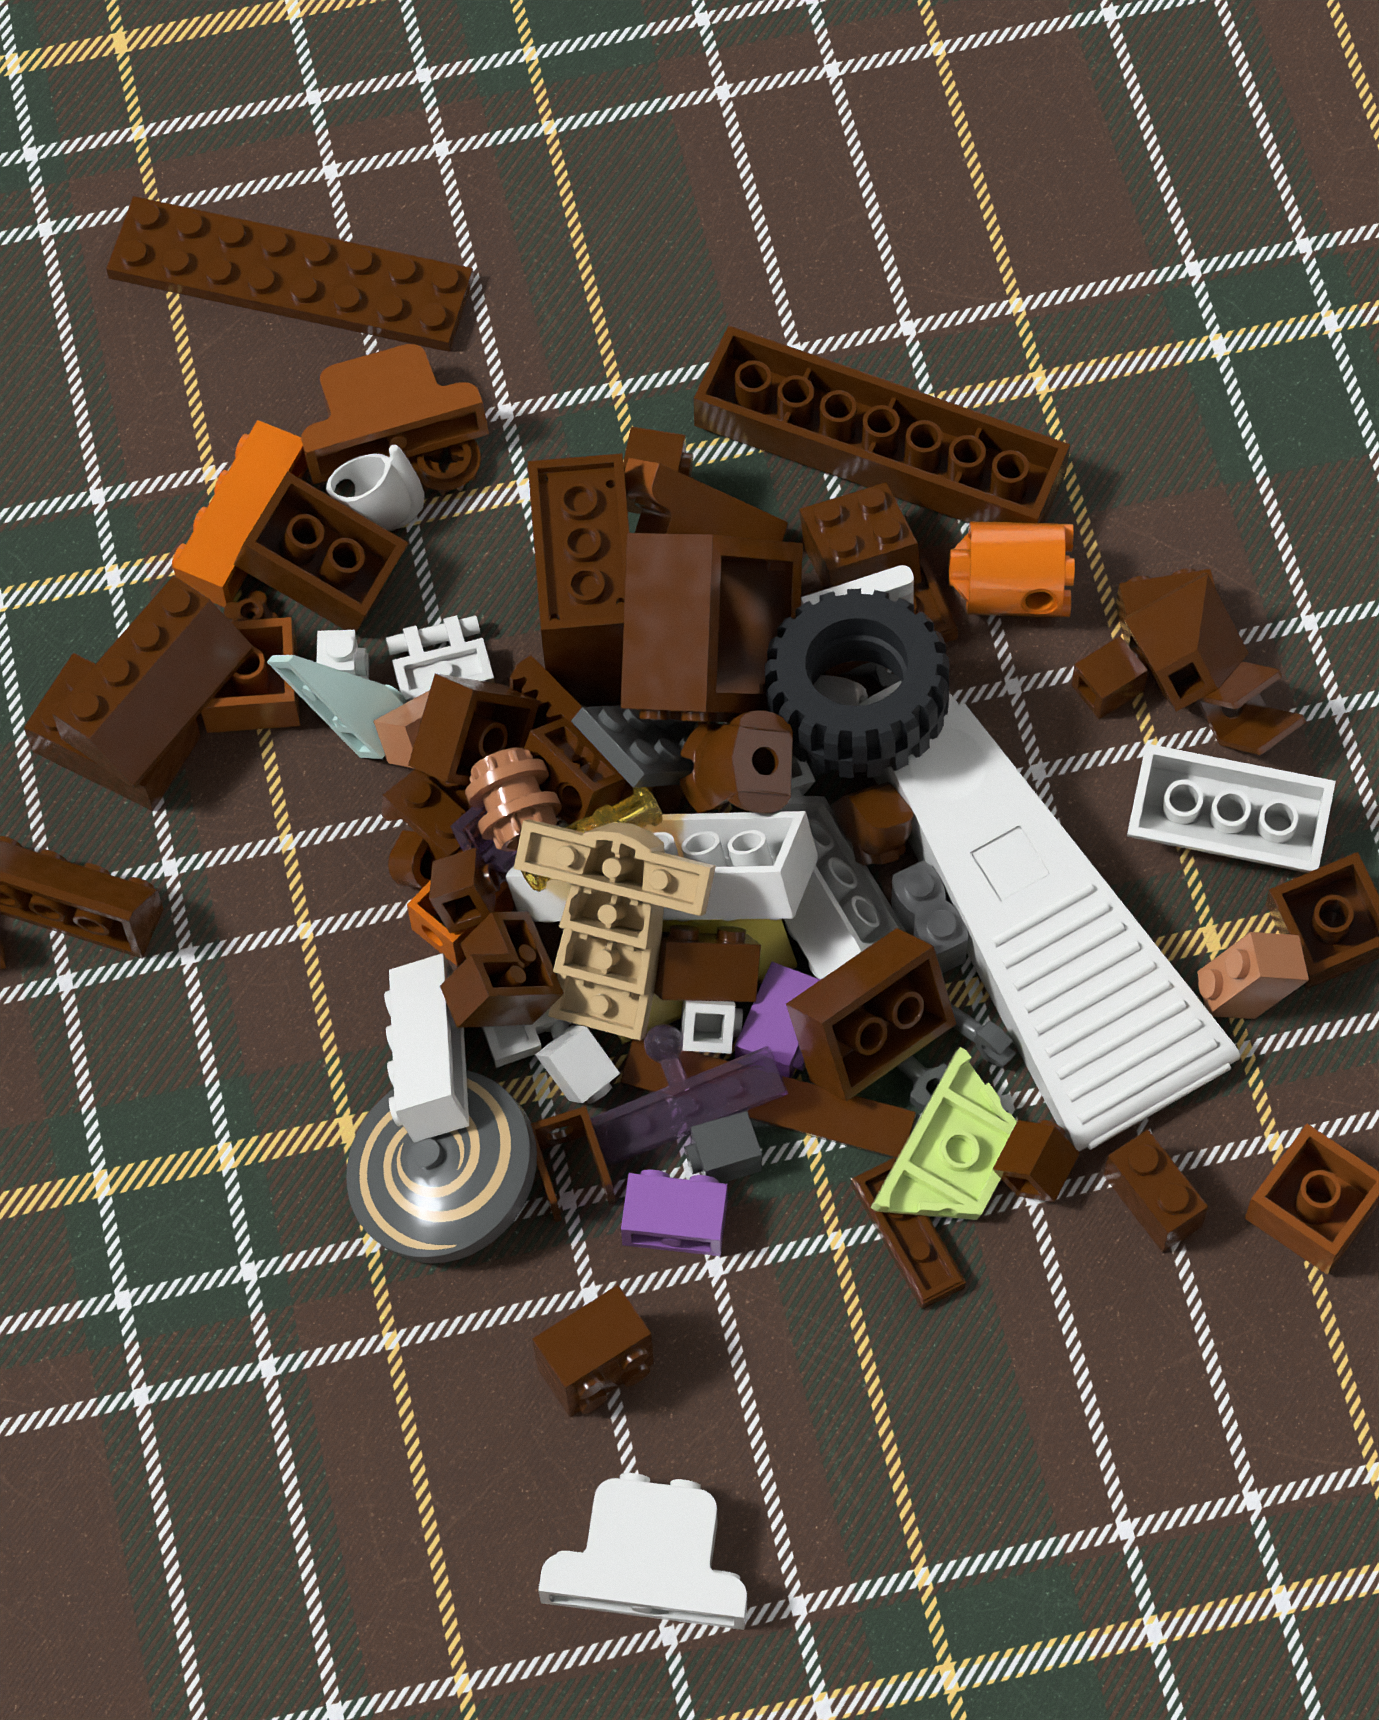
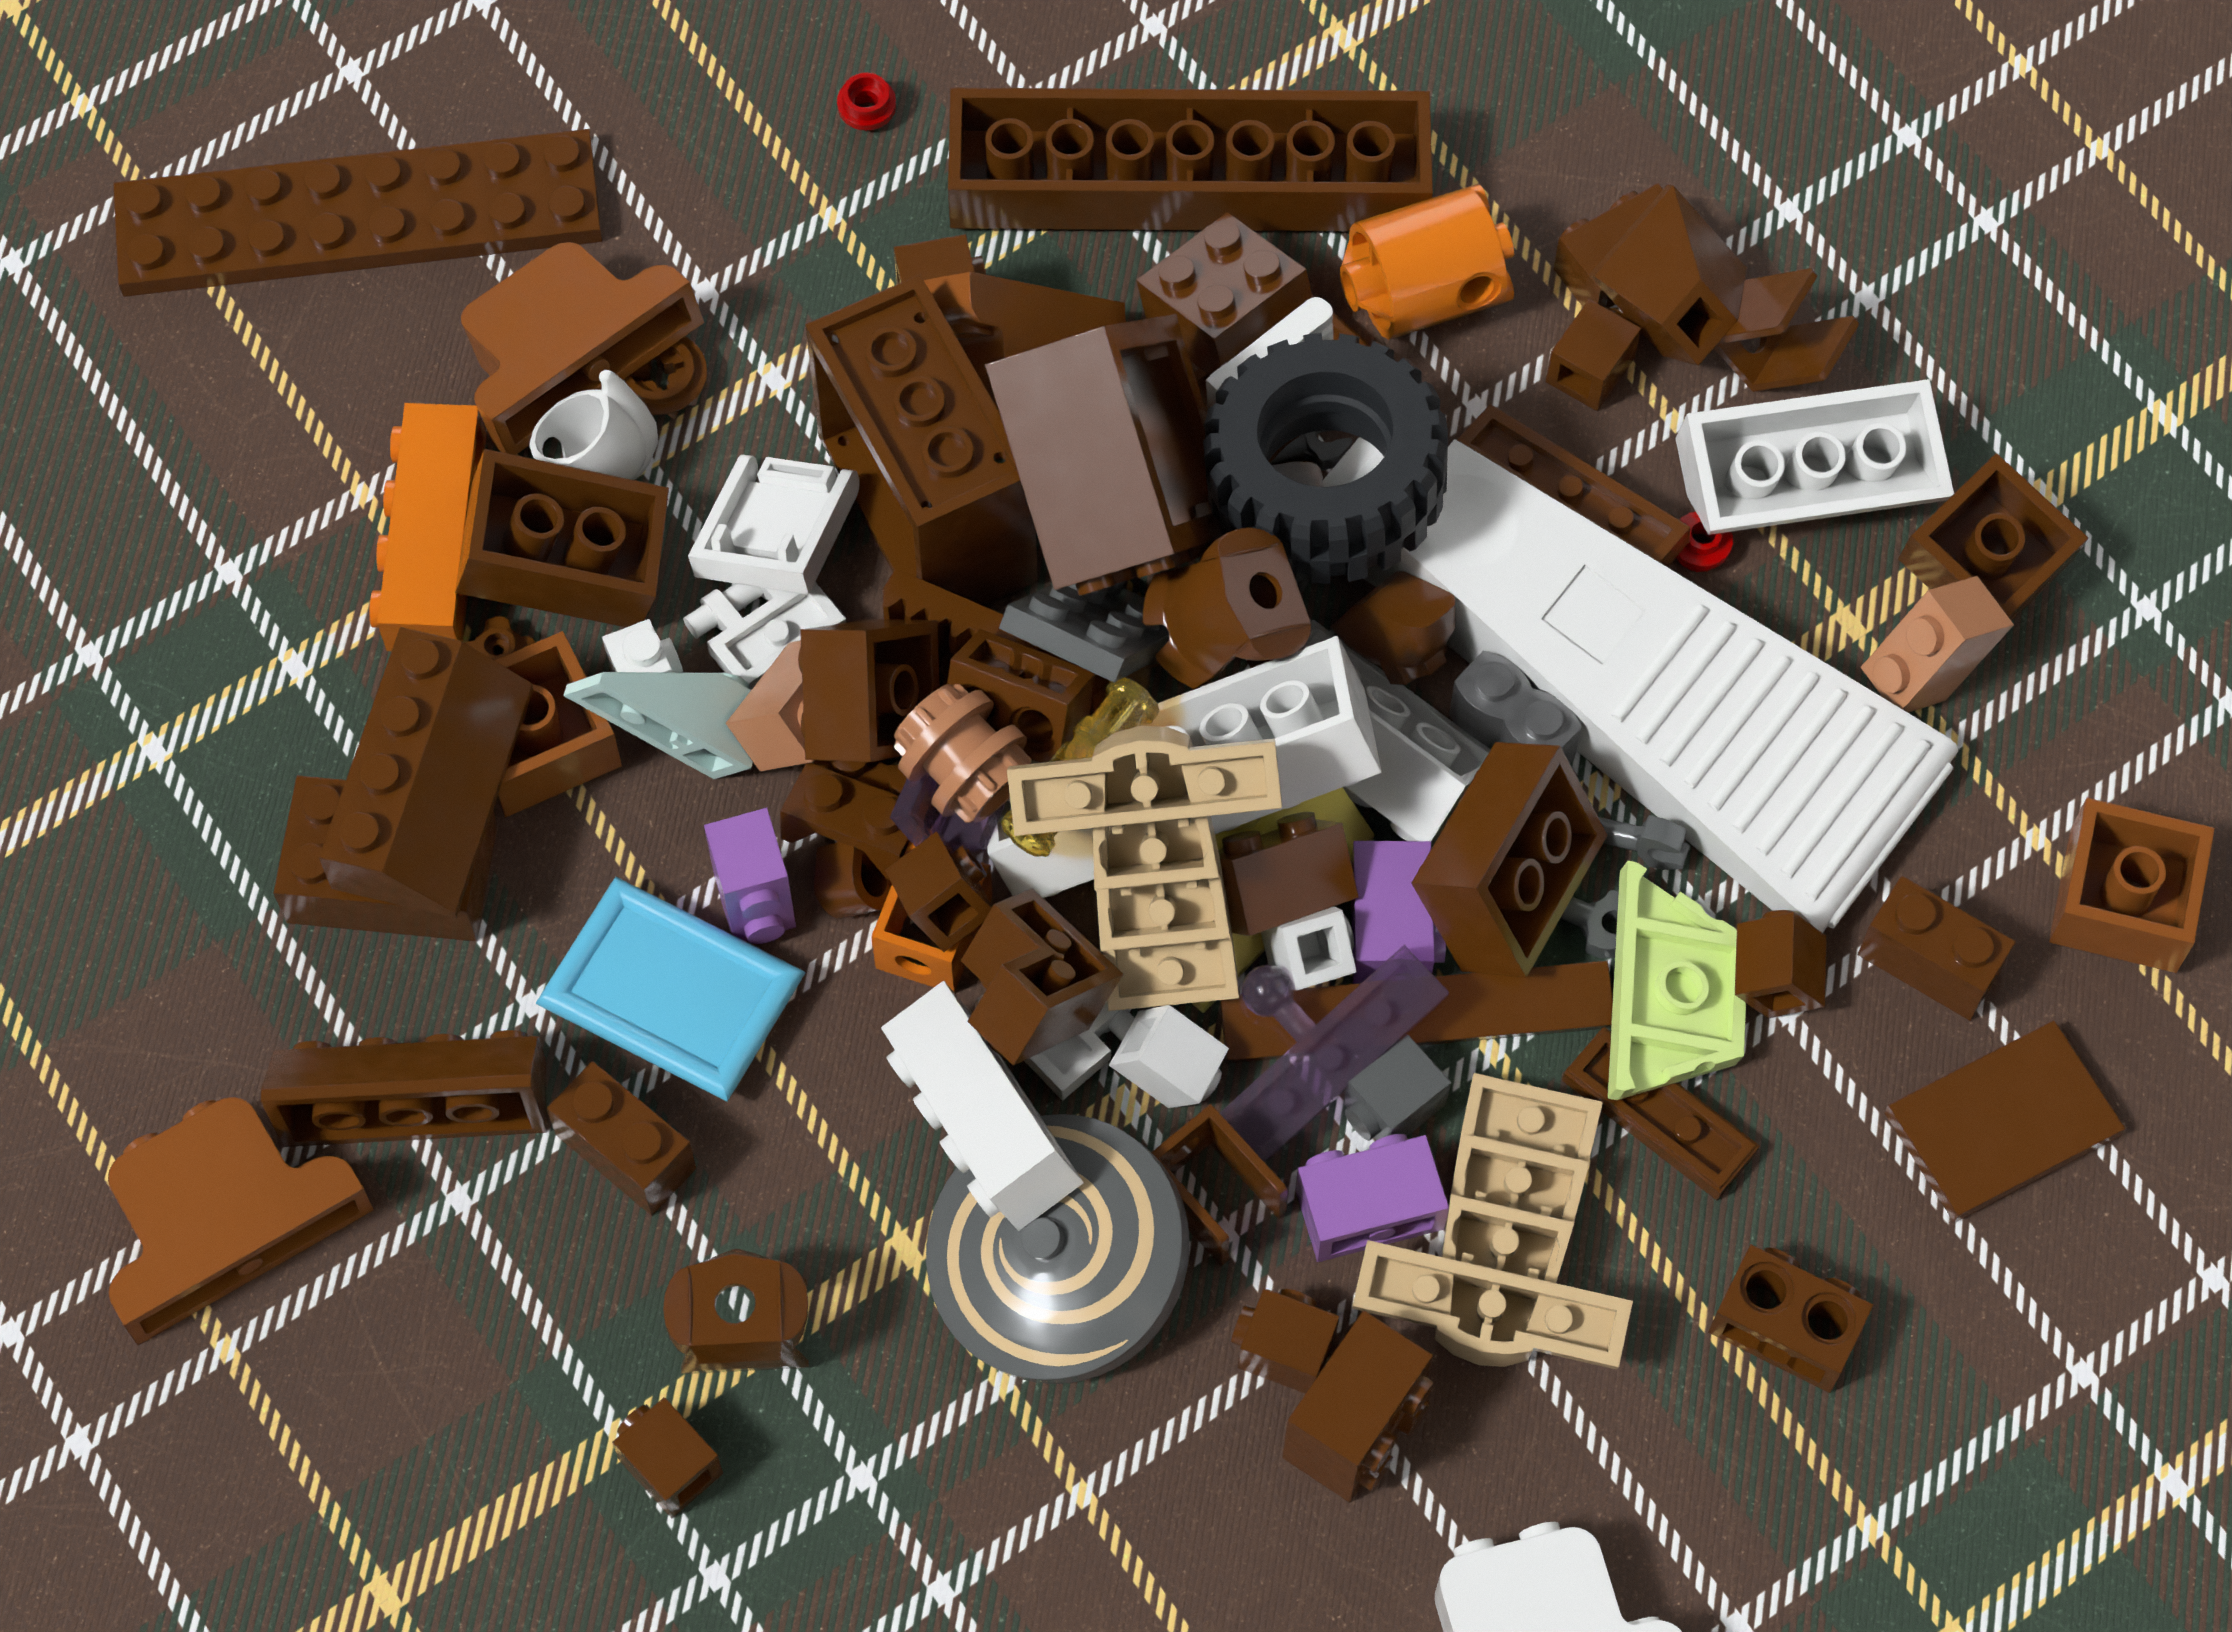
camera: 25 degrees left, 0 degrees up
(122, 1205) = (666, 1455): none -> reddish brown brick
(185, 980) = (622, 1138): none -> reddish brown brick
(207, 1150) = (760, 1341): none -> reddish brown piece
(264, 891) = (671, 988): none -> medium azure piece
(345, 834) = (751, 876): none -> medium lavender brick
(479, 592) = (774, 529): none -> white container
(568, 1282) = (1285, 1338): none -> reddish brown brick
(675, 304) = (861, 89): none -> red plate
(754, 1276) = (1506, 1239): none -> tan slope
(918, 1414) = (1783, 1332): none -> reddish brown brick
(1045, 767) = (1576, 485): none -> reddish brown gear
(1120, 850) = (1707, 556): none -> red plate
(1151, 1331) = (2004, 1121): none -> reddish brown tile

